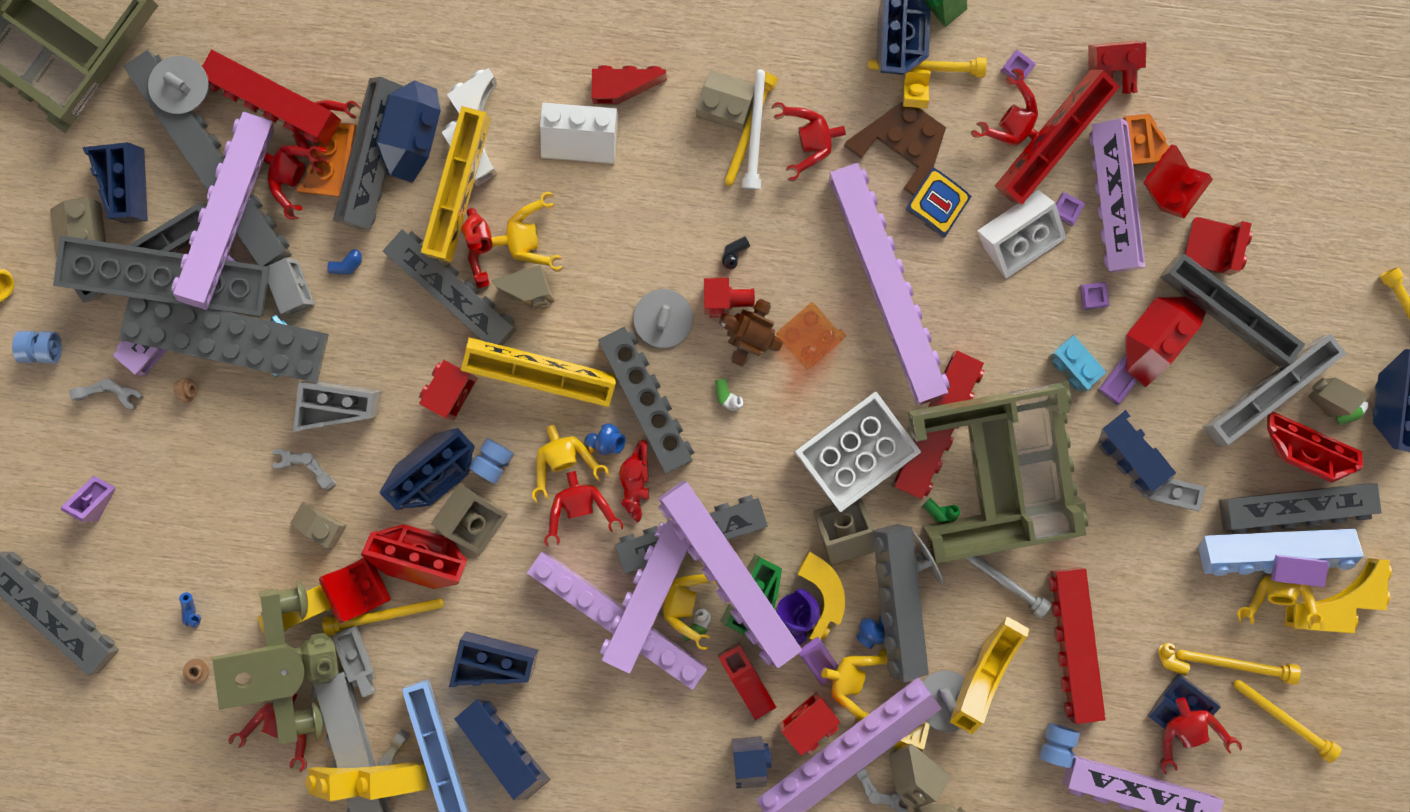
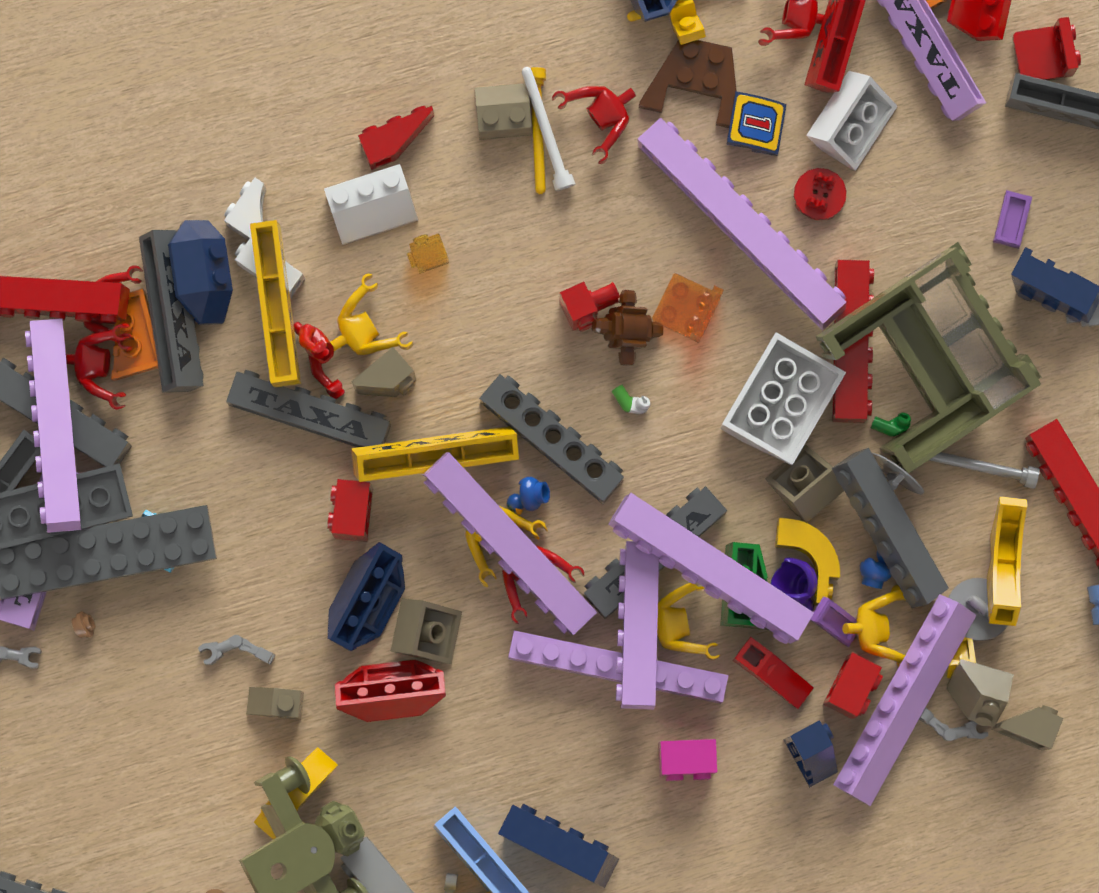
camera: 25 degrees left, 5 degrees down
(89, 500) = (34, 774): medium lavender slope -> none
(188, 610) = (179, 842): blue arm -> none
(289, 286) = (145, 477): light grey hinge -> none
(332, 404) = (240, 574): light grey wedge -> none
(332, 626) = (338, 794): yellow piece -> none
(348, 265) = (195, 431): blue arm -> none
(354, 590) = (343, 747): red bracket -> none
(355, 660) = (374, 821): light grey hinge -> none
(491, 461) = (424, 563): medium blue wheel -> none
(491, 661) = (510, 761): dark blue wedge -> none
(567, 476) = (509, 543): none -> lavender brick
(608, 195) = (427, 253): none -> clear yellow brick
(632, 476) = (571, 518): red animal -> none
(641, 725) = (687, 758): none -> dark pink brick
(663, 318) = (533, 352): light grey shield -> none
(701, 622) = (702, 636): white arm -> none
(732, 251) = (573, 257): black arm -> none
(958, 294) = (815, 205): none -> red plate
(1069, 208) = (887, 76): medium lavender tile -> none
(1077, 364) = (961, 224): medium azure bracket -> none
(1094, 295) = (949, 151): medium lavender tile -> none
(1160, 336) = (1030, 163): red wedge -> none

